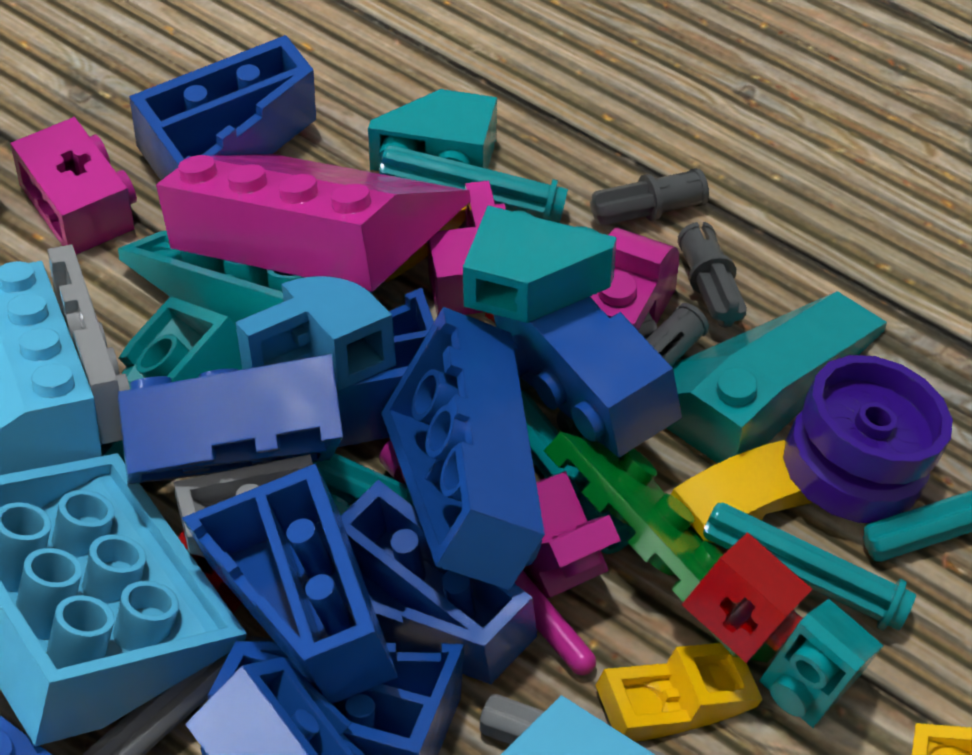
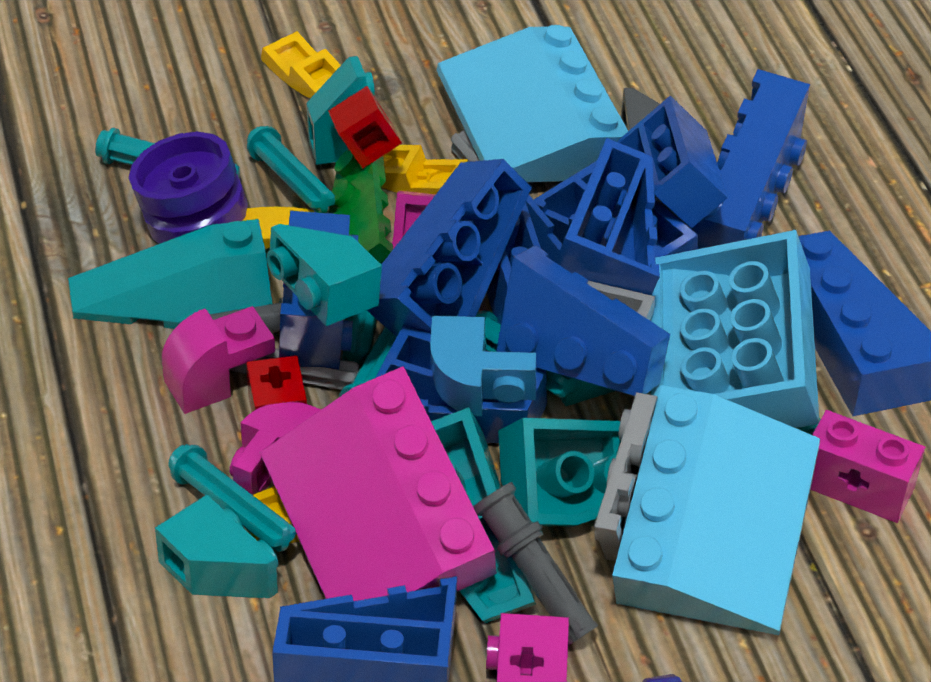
camera: 145 degrees left, 5 degrees down
(151, 242) = (522, 542): none -> dark grey pin
(650, 197) = (118, 427): dark grey axle -> none
(712, 274) = (140, 356): dark grey axle -> none

